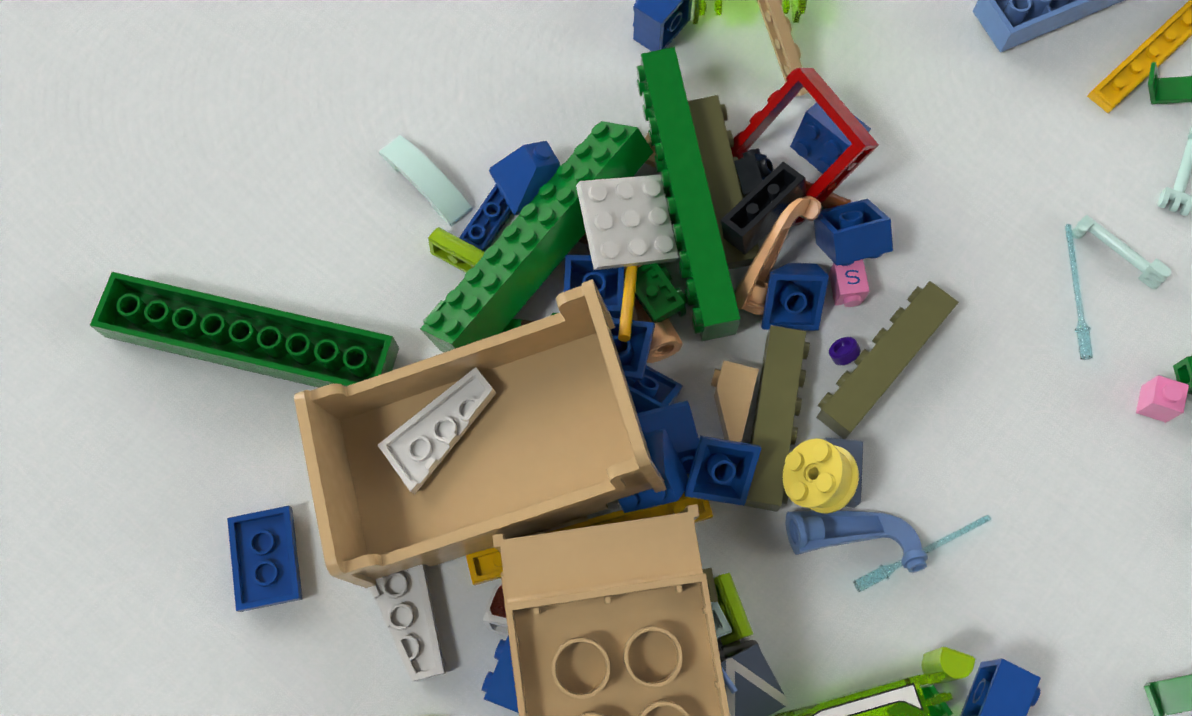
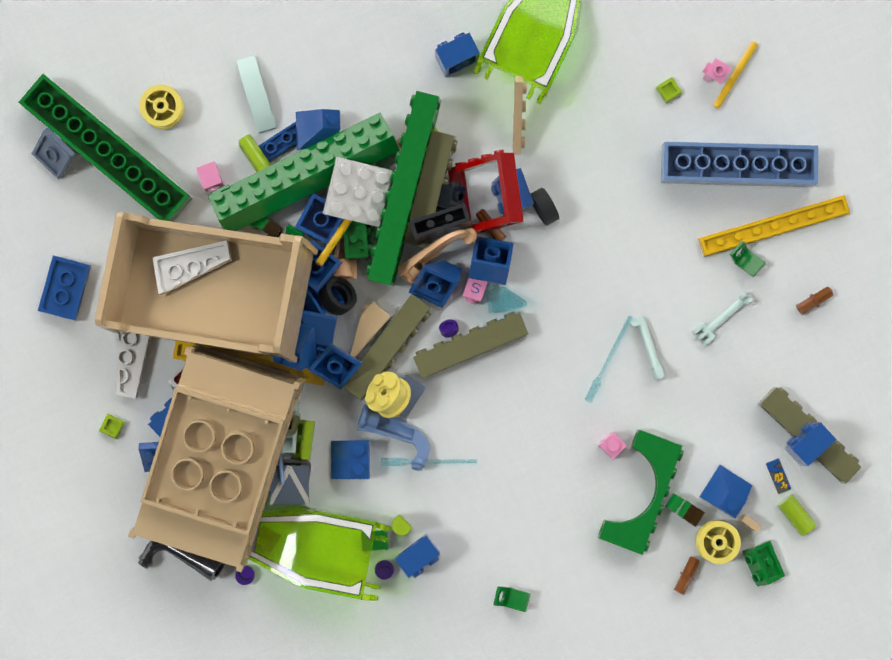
camera: 20 degrees right, 15 degrees up
(170, 374) = (53, 153): none -> sand blue tile
(301, 246) = (167, 116): none -> light yellow wheel
(409, 305) = (210, 177): none -> bright pink brick
(670, 377) = (329, 301): none -> black tyre
(812, 604) = (350, 459): none -> blue slope
(890, 131) = (544, 206): none -> black tyre
(894, 279) = (502, 299): none -> clear light blue slope

